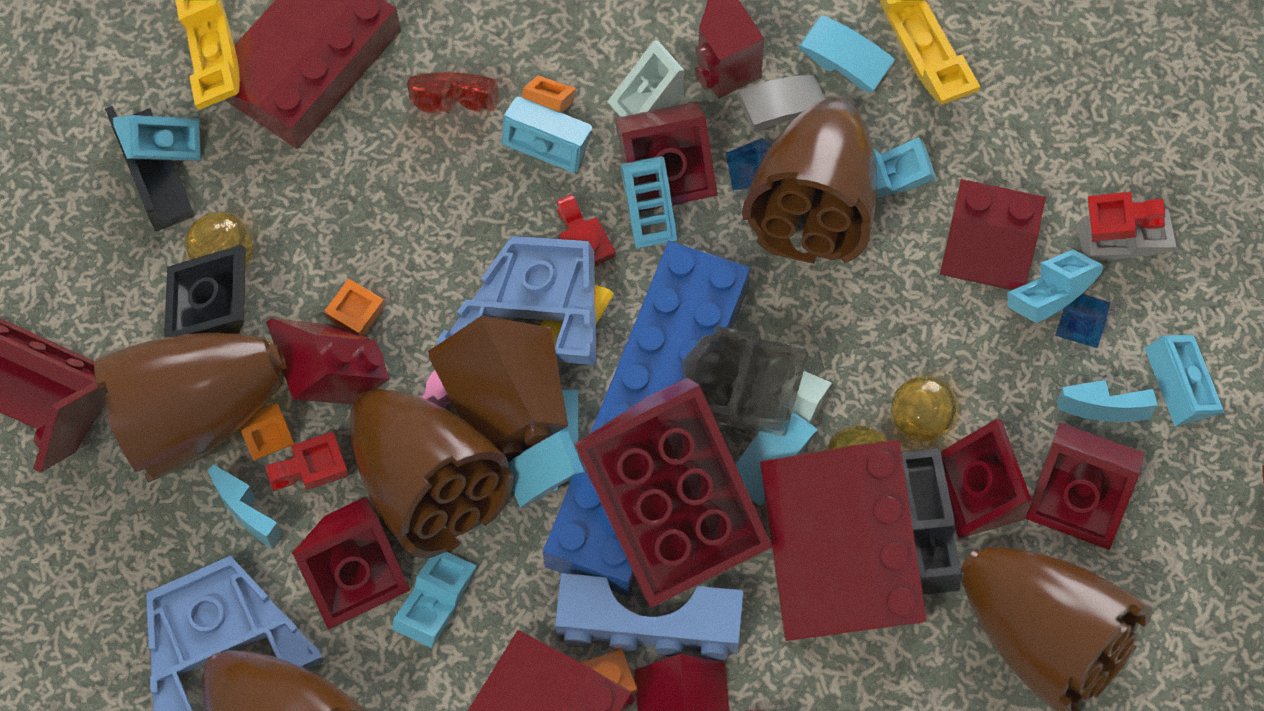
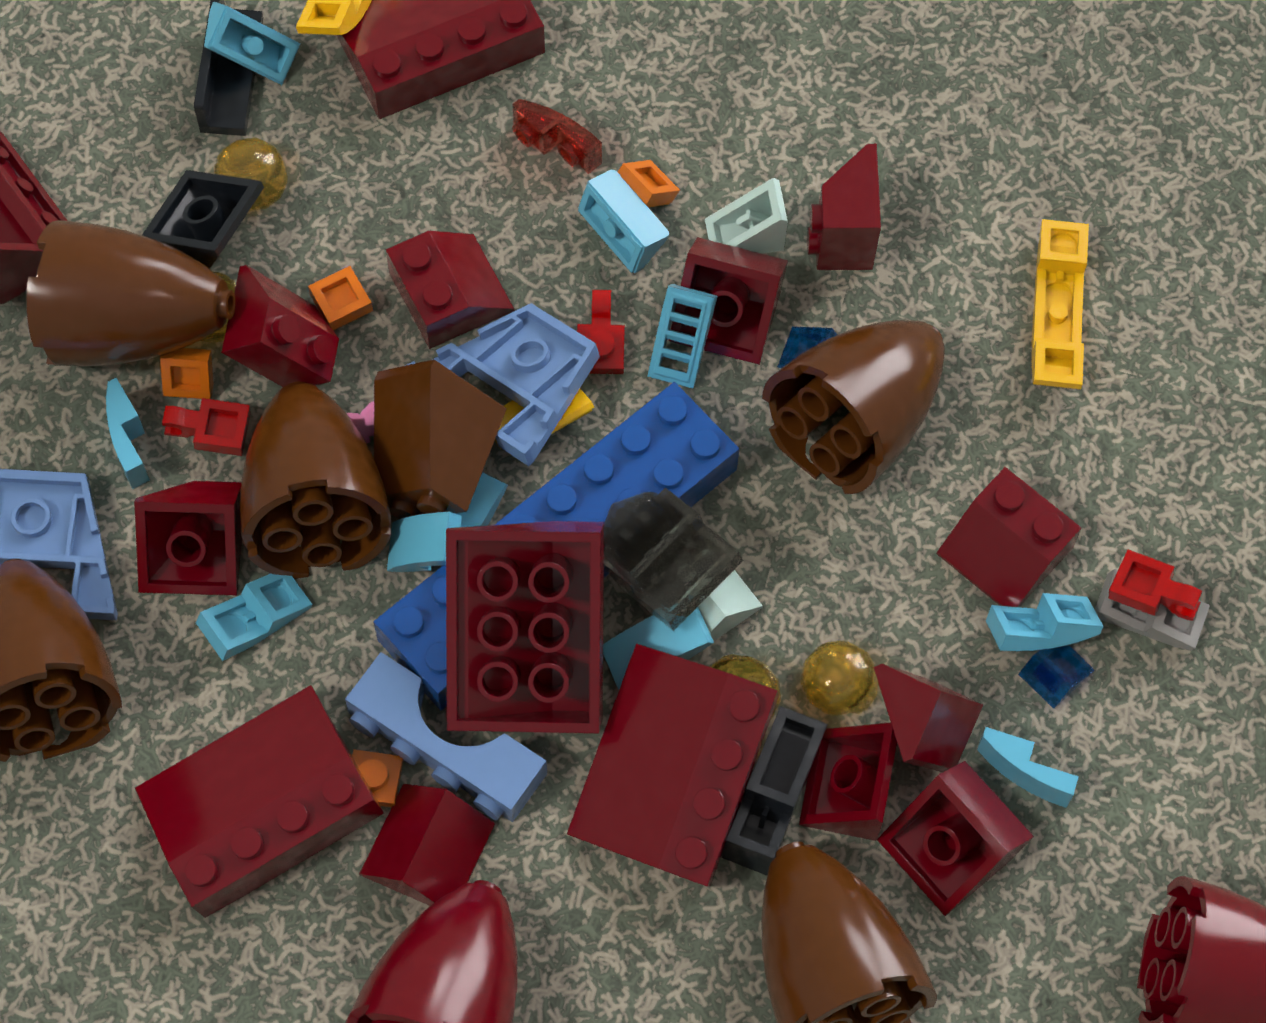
camera: 25 degrees right, 0 degrees up
(434, 256) = (446, 284): none -> dark red slope
(779, 100) = (874, 299): light grey slope -> none
(847, 51) = (971, 285): medium azure slope -> none
(903, 168) = (957, 428): medium azure slope -> none
(1015, 402) = (927, 718): none -> dark red slope
(1183, 379) = (1125, 785): medium azure slope -> none

